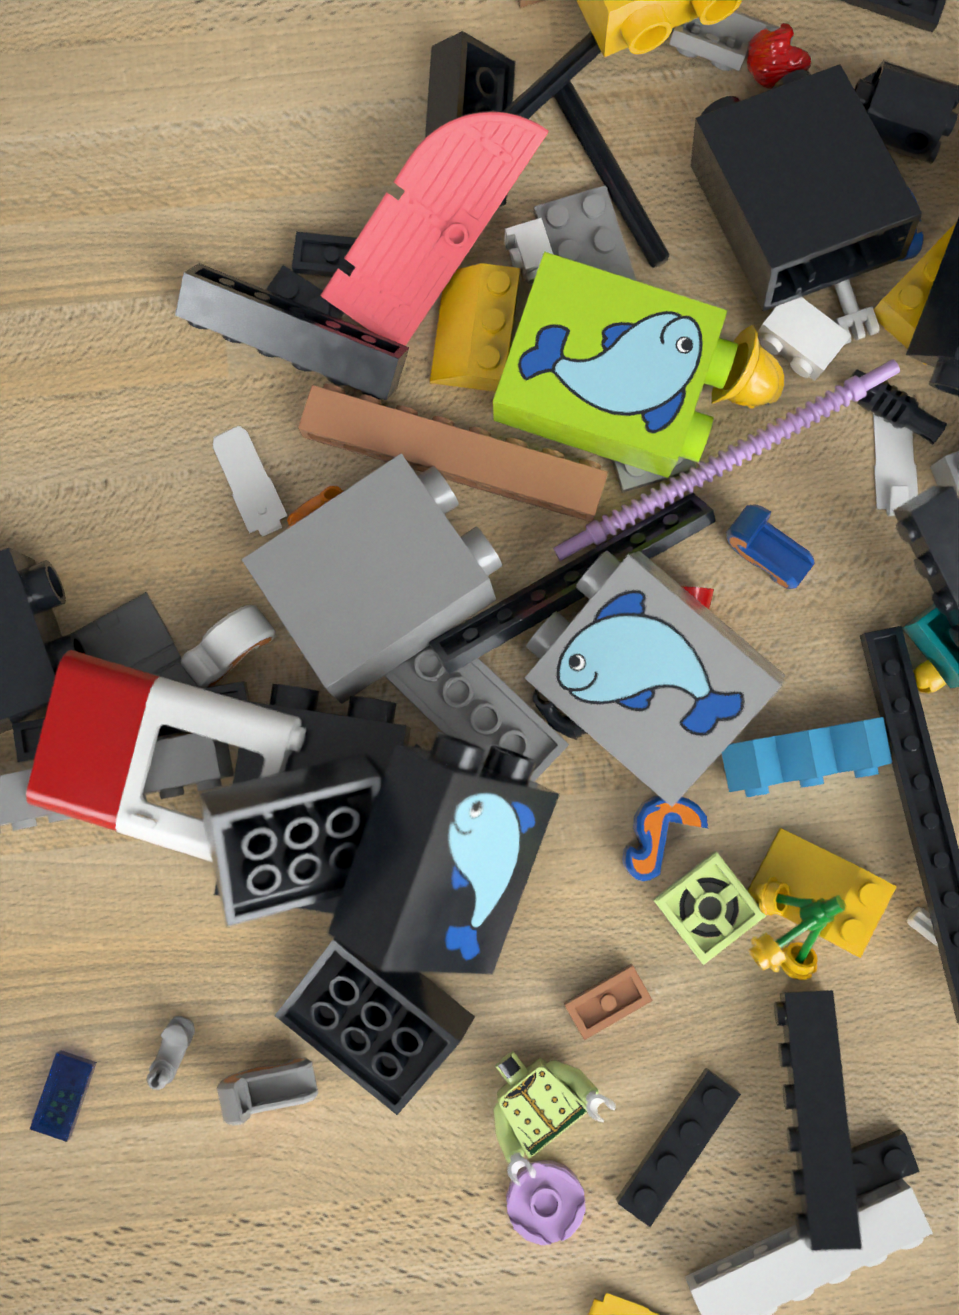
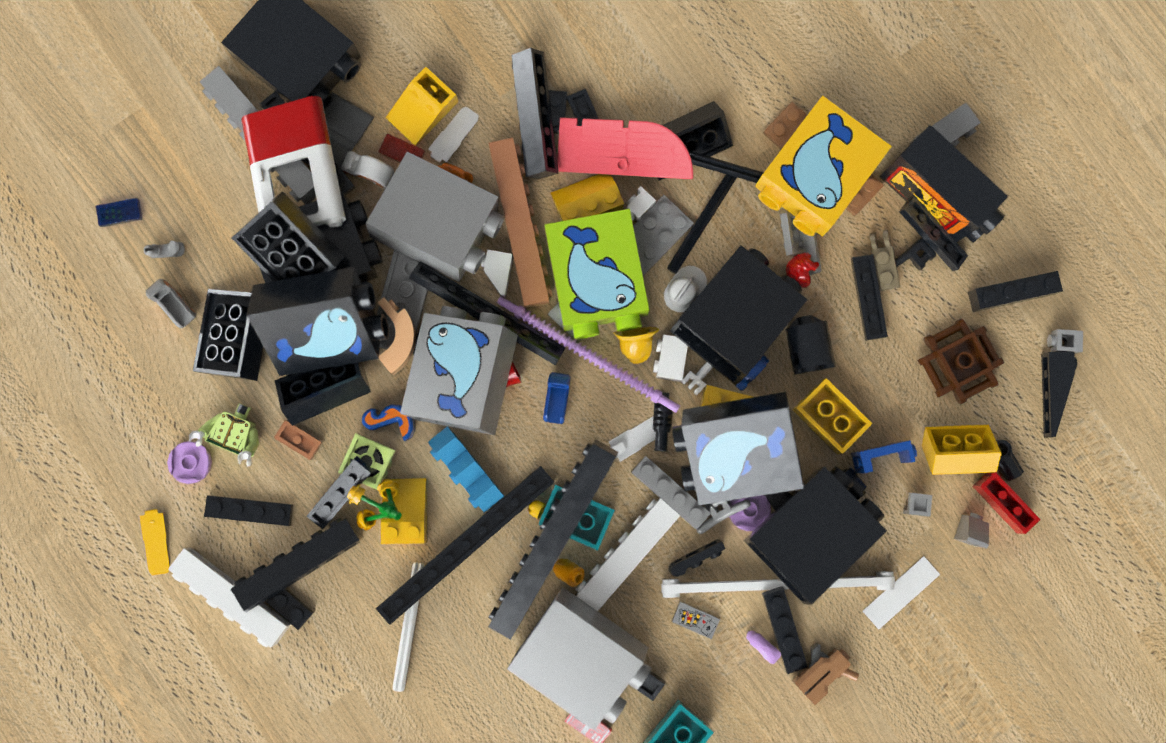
camera: 55 degrees right, 0 degrees up
(174, 502) = (421, 106): none -> yellow slope
(223, 580) = (396, 148): none -> clear red tile
(513, 528) = (498, 269): none -> white slope
(554, 922) = (320, 390): none -> black brick
(557, 748) = (405, 337): none -> light nougat arch
(700, 258) = (684, 288): none -> white piece
(738, 979) = (337, 494): none -> plate

